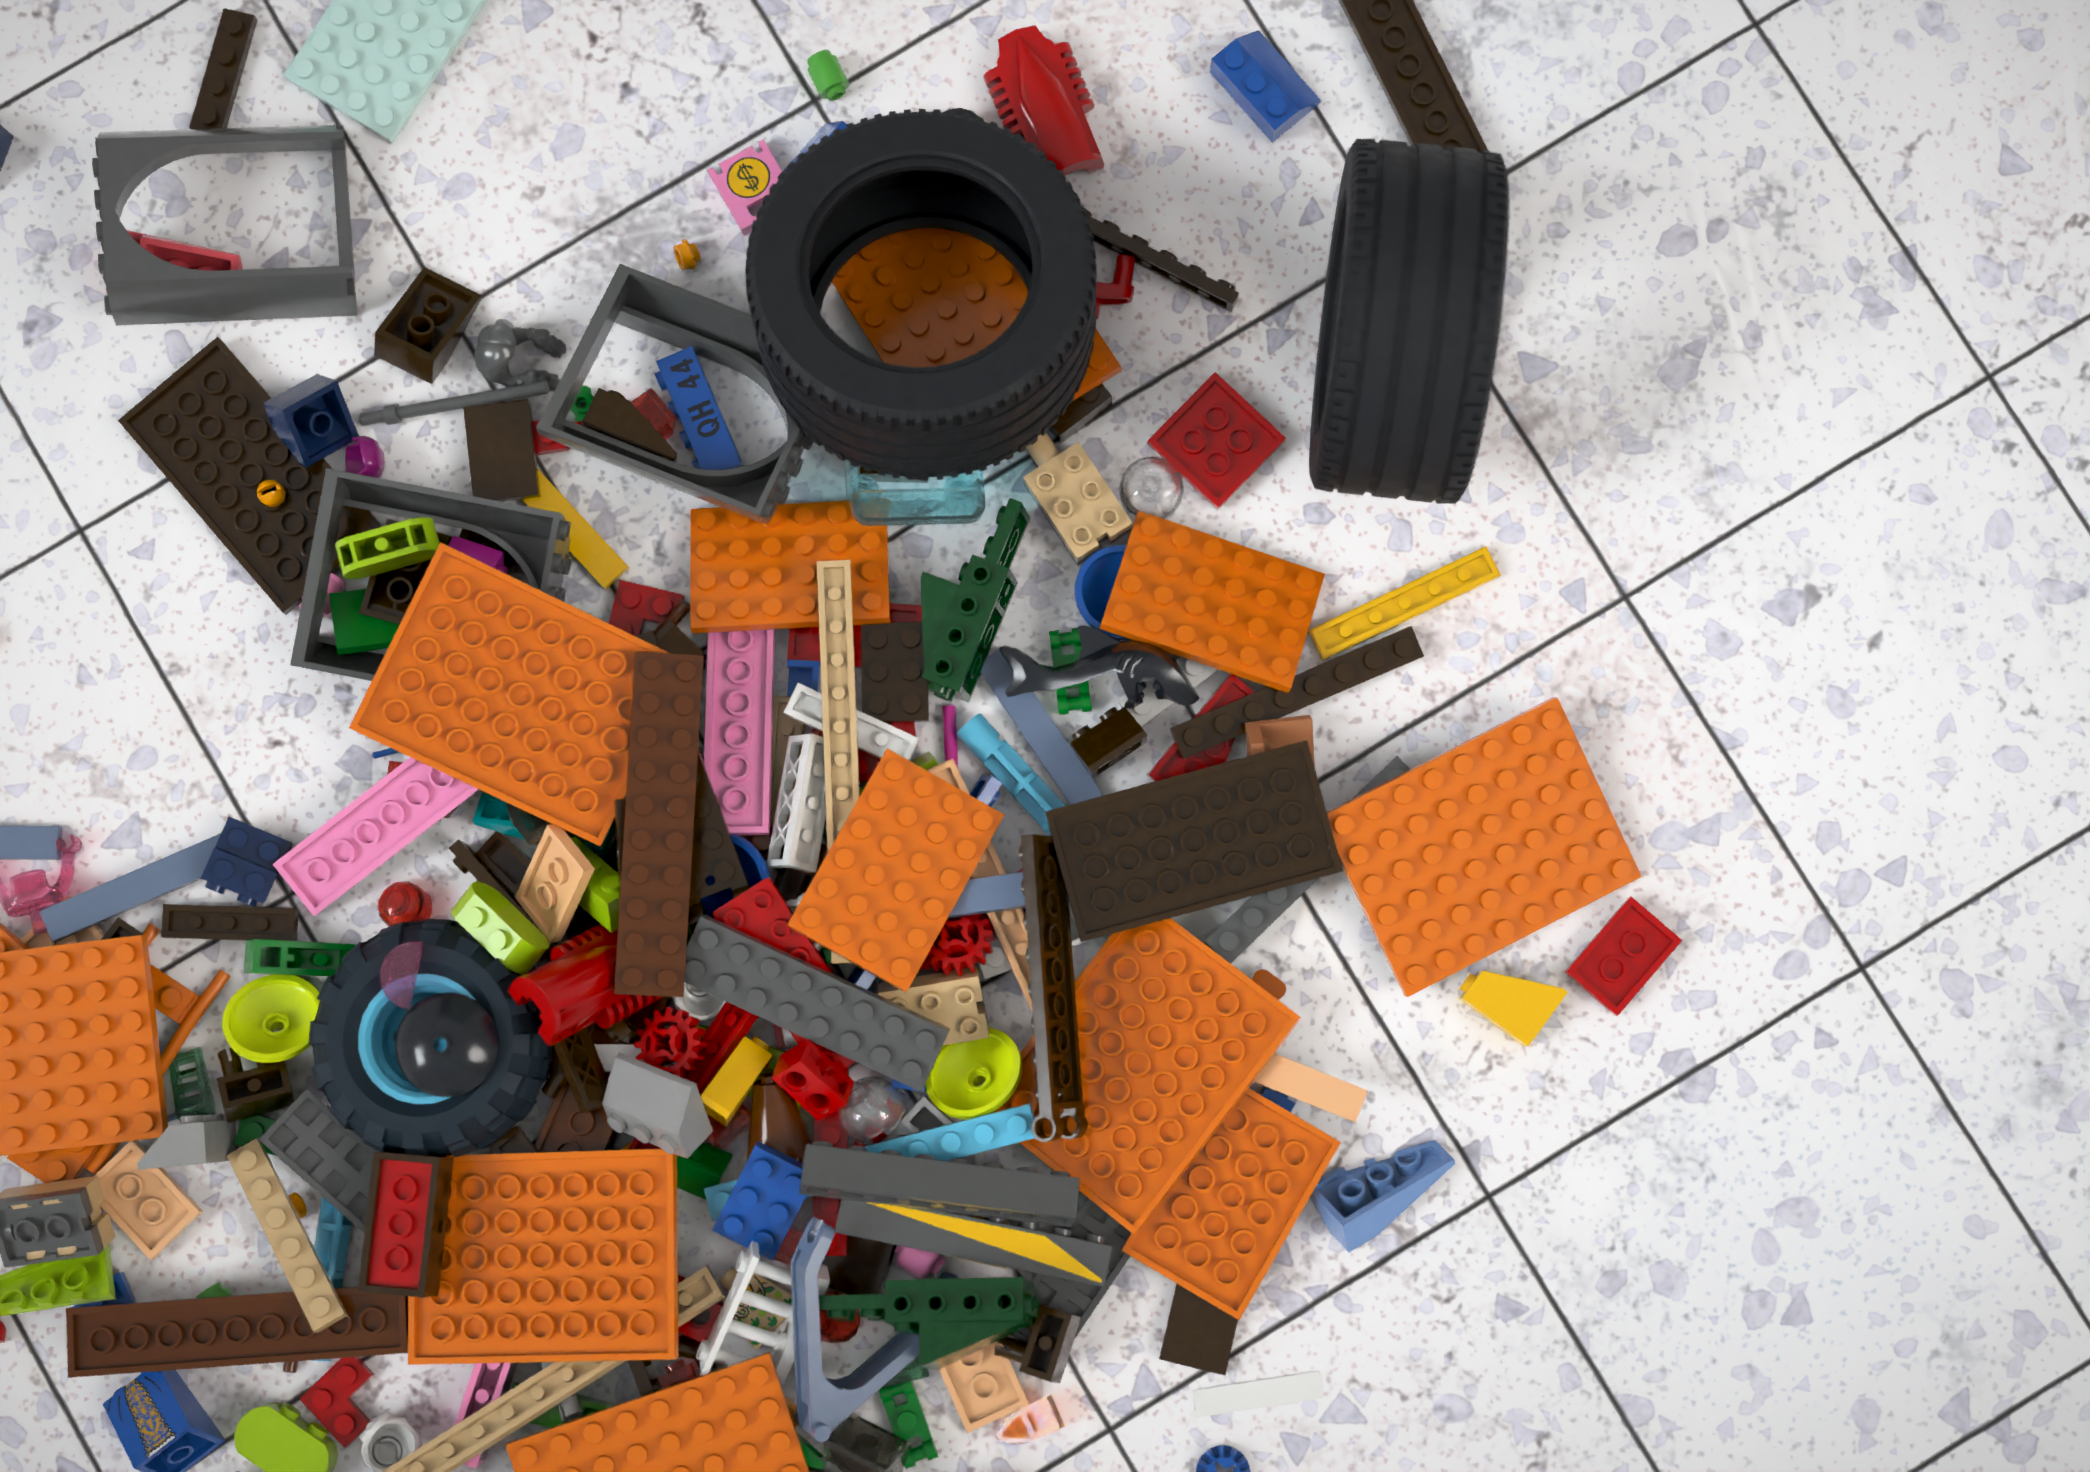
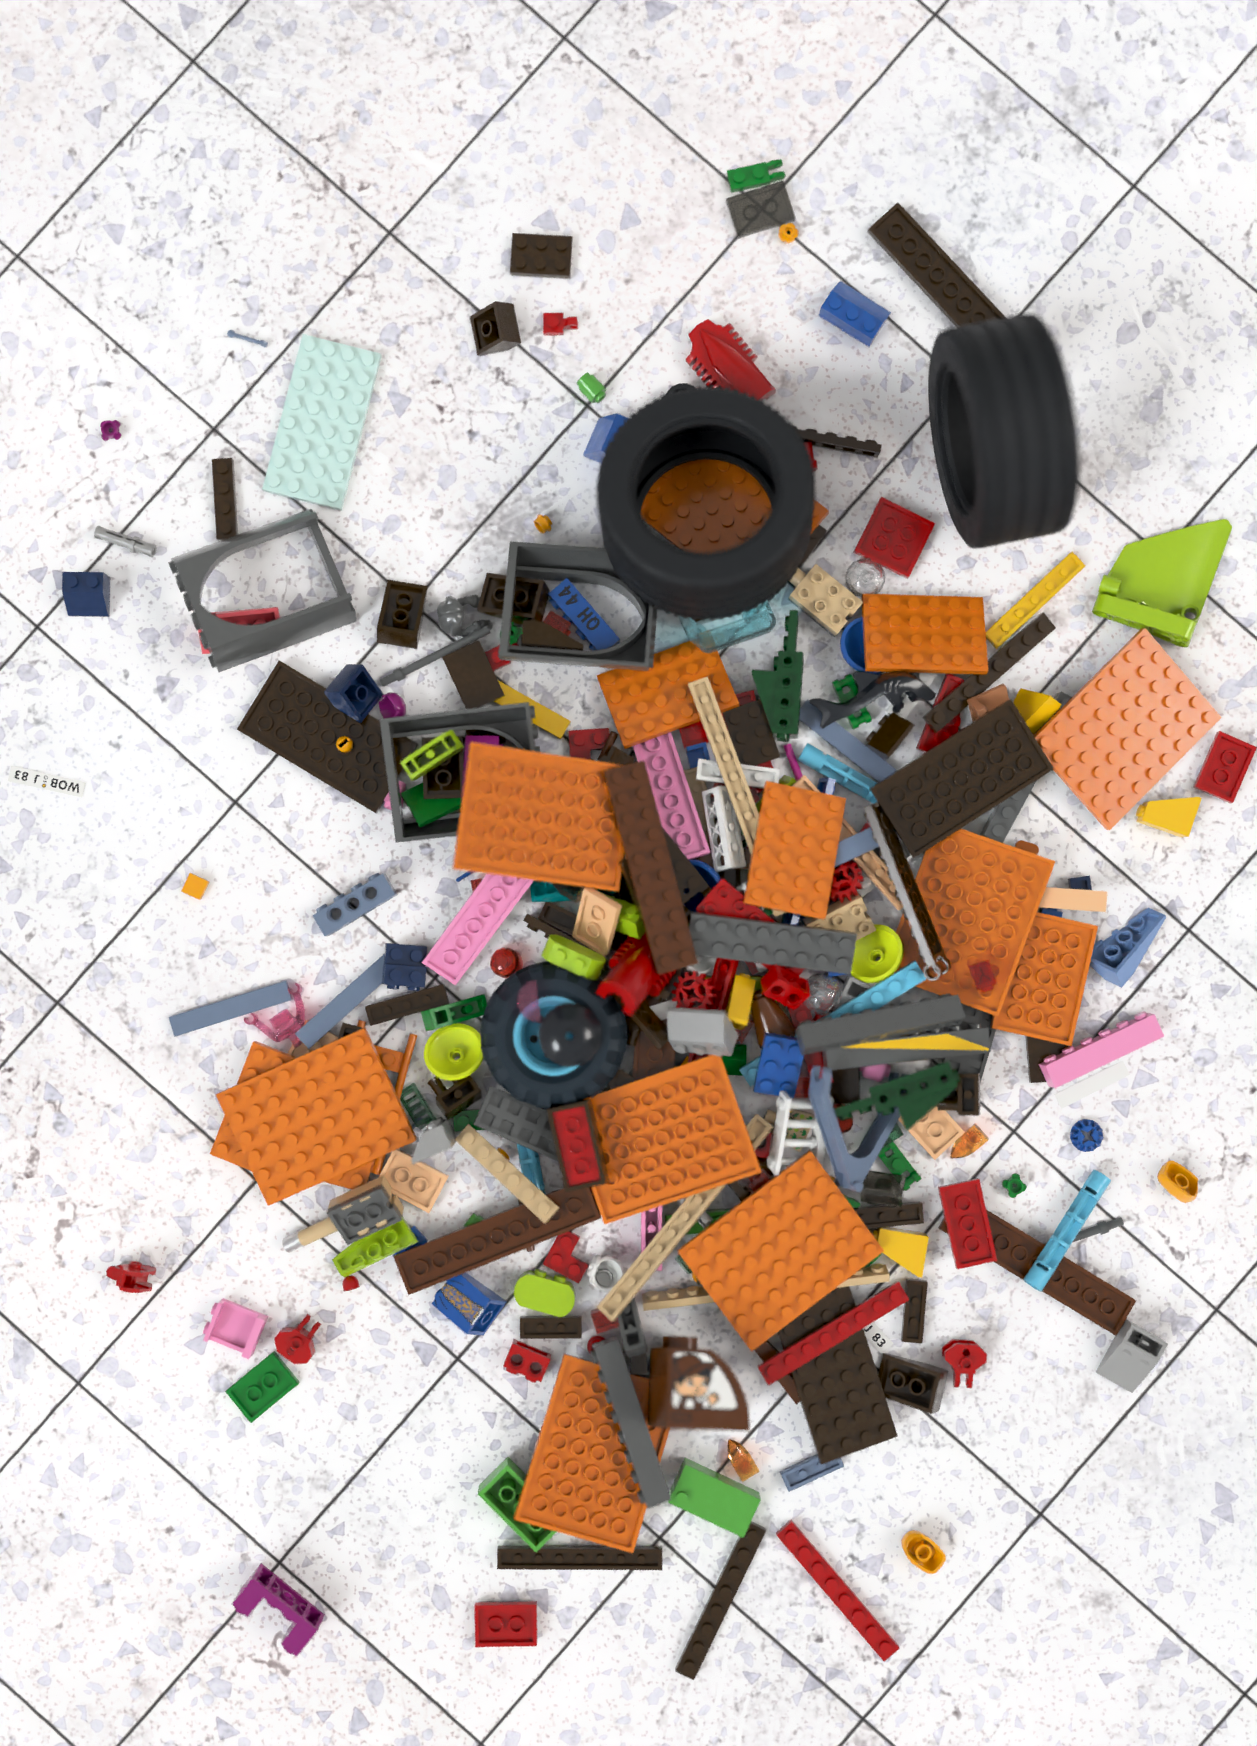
camera: 25 degrees left, 5 degrees up
(63, 97) = (134, 543): none -> light grey pin
(255, 738) = (329, 925): none -> sand blue brick
(623, 362) = (529, 598): none -> dark brown slope
(745, 182) = (565, 466): bright pink container -> none
(1128, 1161) = (983, 976): none -> clear red brick
(1286, 1342) = (1101, 1050): none -> bright pink brick
(1337, 1066) = (1081, 883): none -> dark blue plate
(1345, 770) = (1035, 708): none -> yellow slope
(1616, 636) = (1163, 580): none -> lime panel

